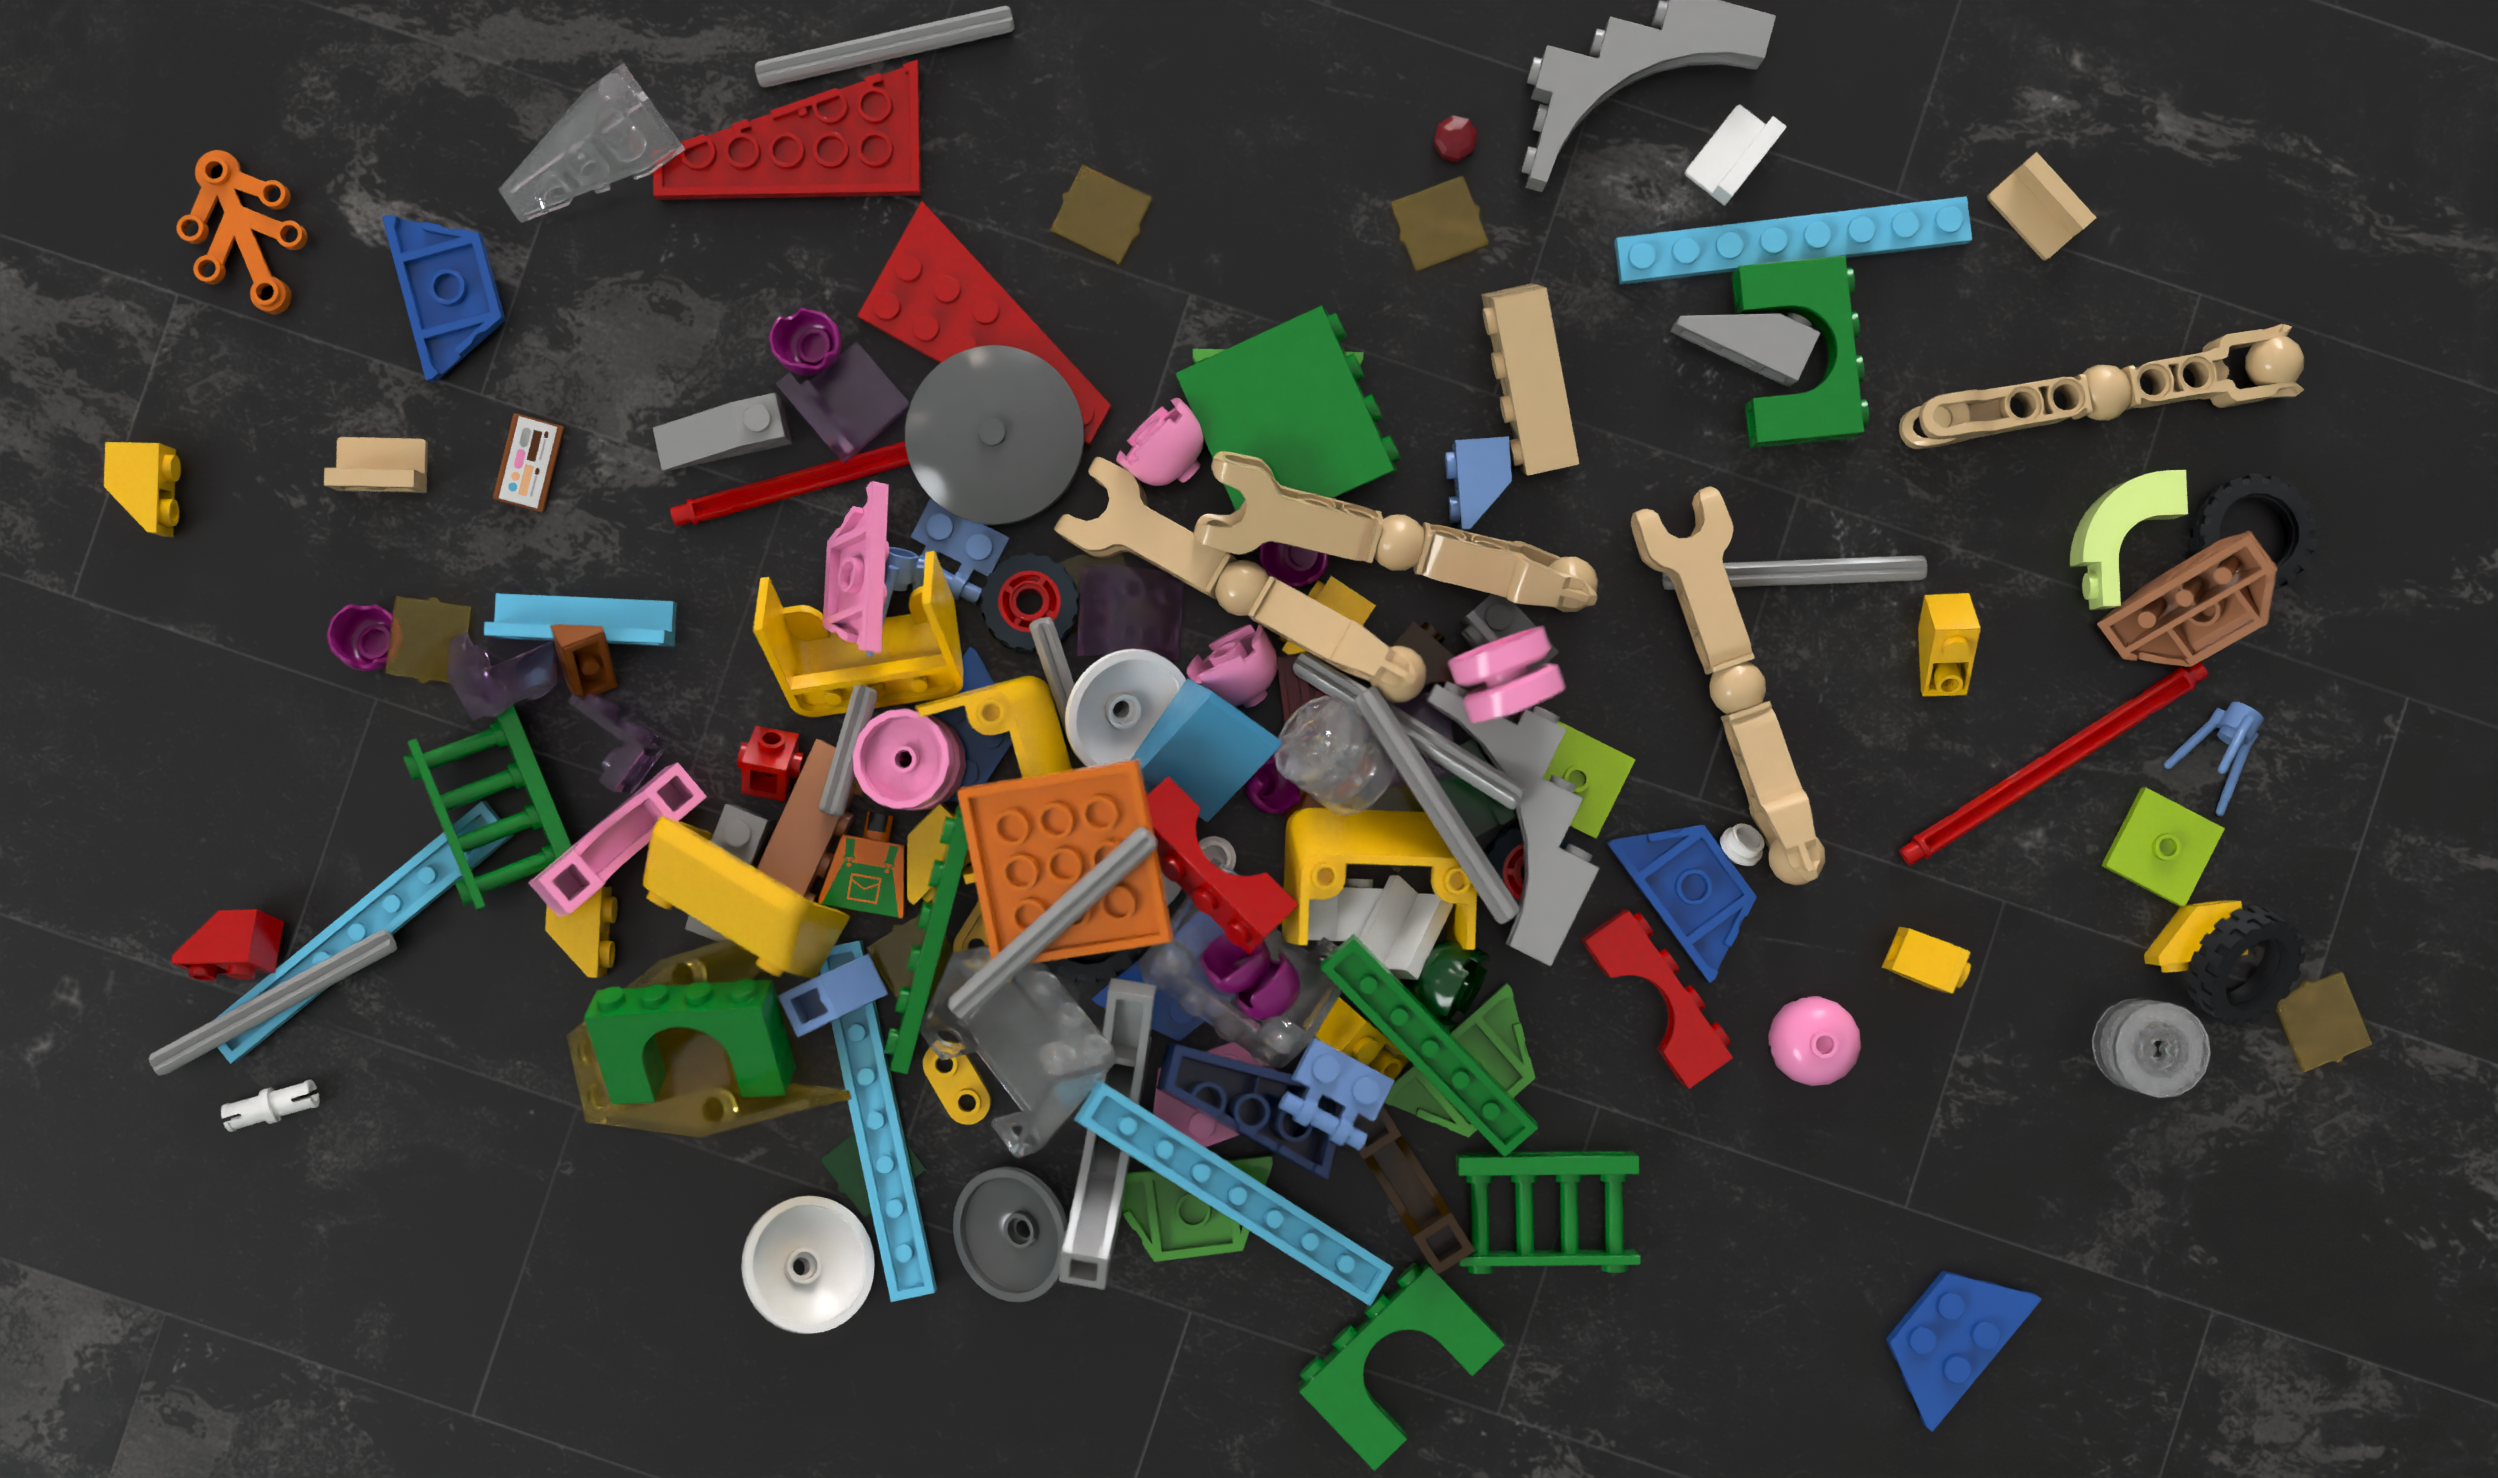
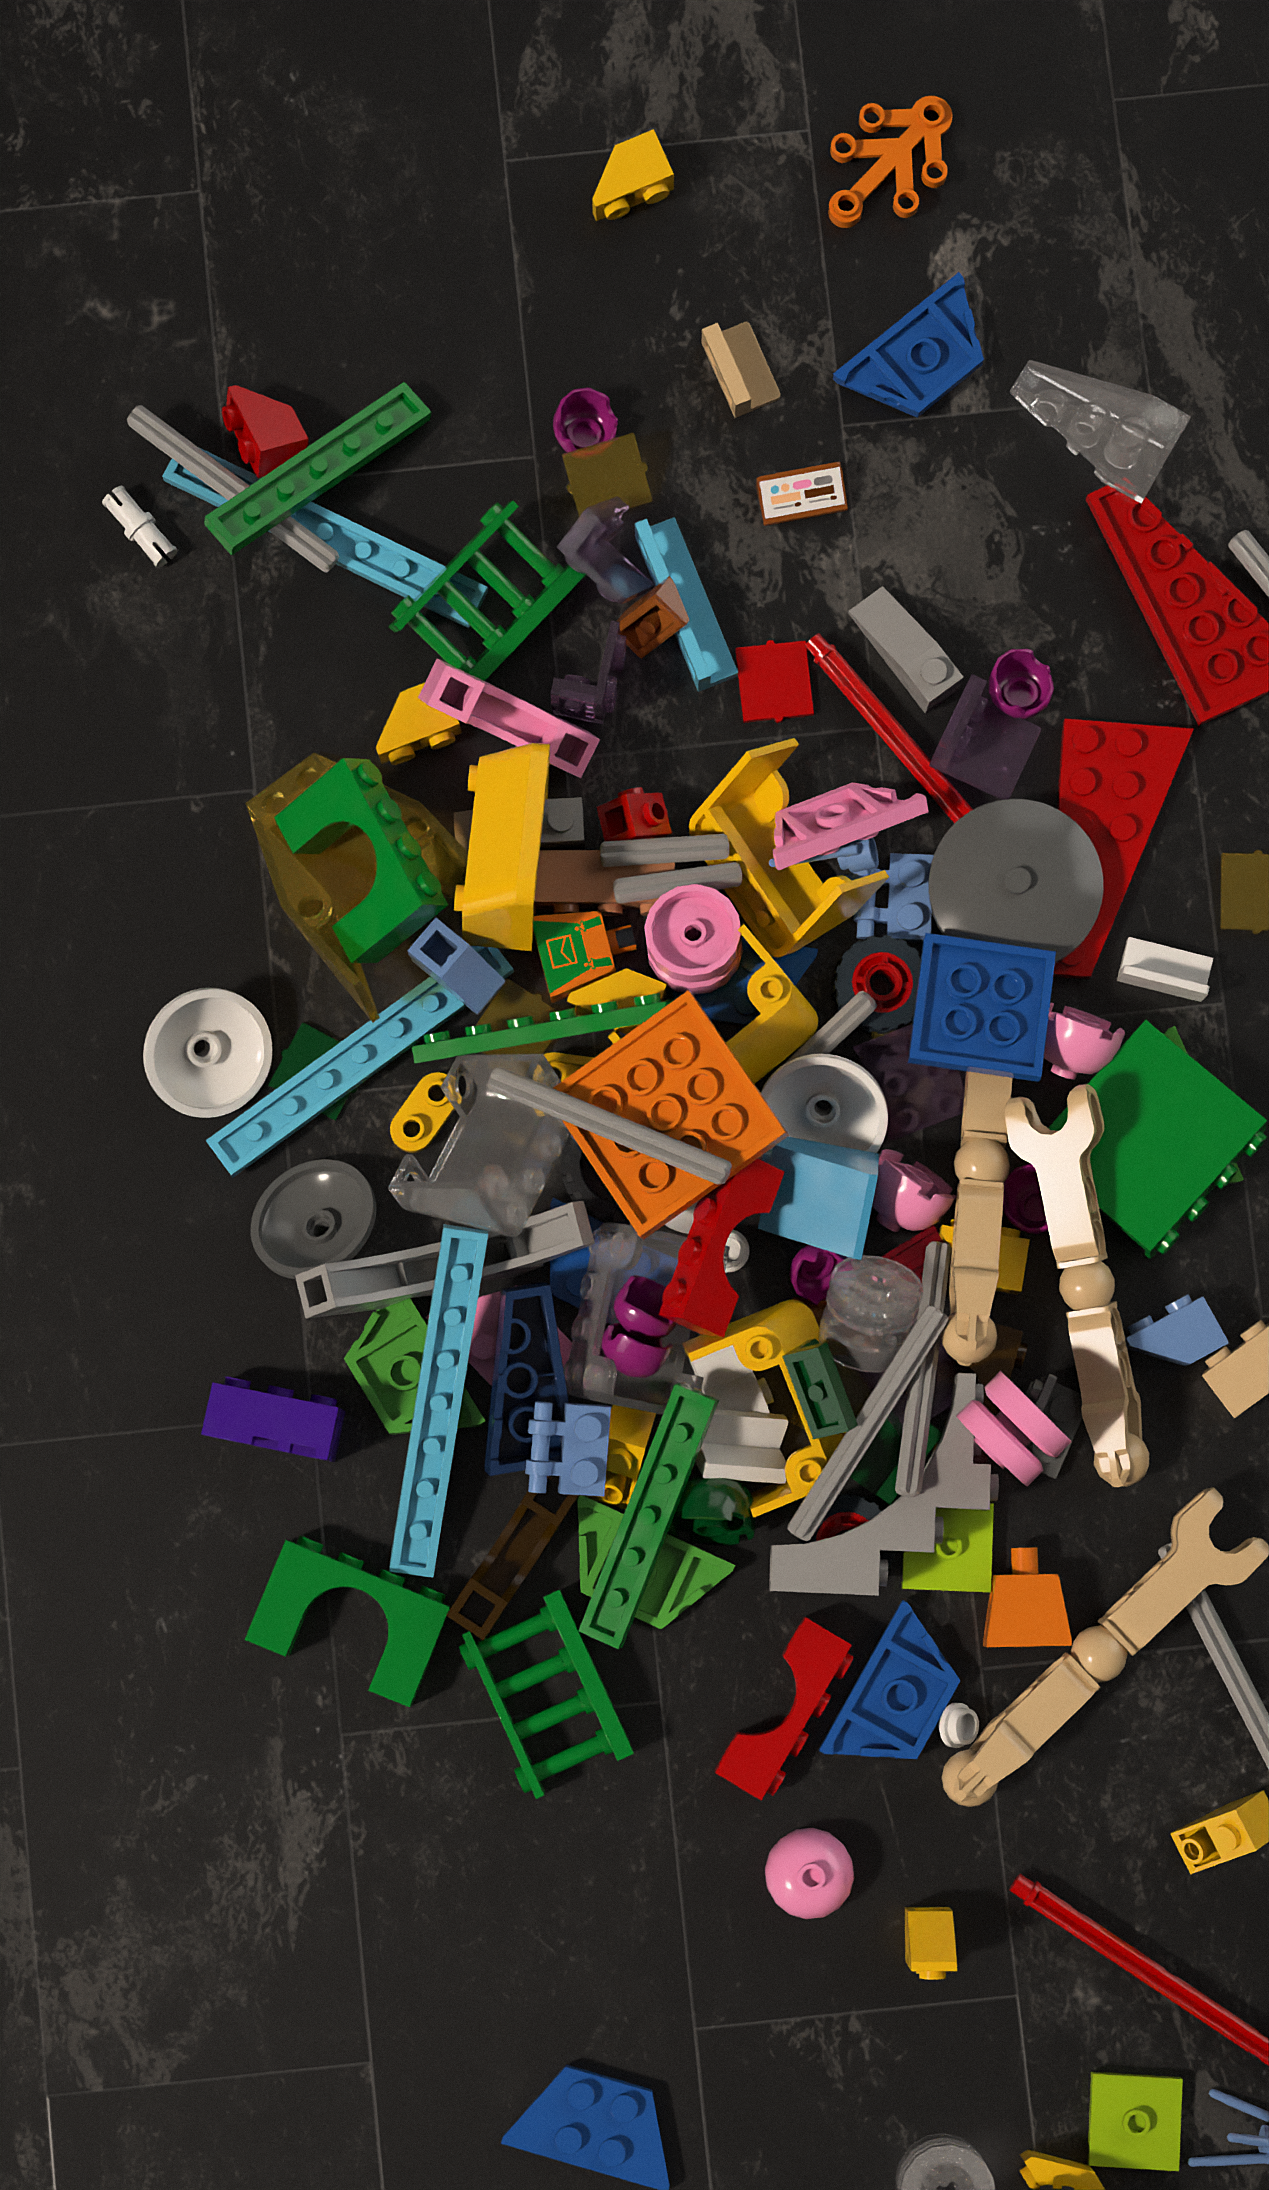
camera: 75 degrees right, 5 degrees down
(290, 914) = (317, 468): none -> green plate
(697, 570) = (774, 681): none -> red piece
(811, 749) = (664, 850): none -> light grey axle
(1096, 520) = (982, 1007): none -> blue plate
(1135, 332) = (1165, 969): none -> white panel
(1182, 1352) = (274, 1419): none -> dark purple wedge
(1386, 836) = (819, 1389): none -> dark green panel
(1663, 733) = (1026, 1606): none -> orange torso

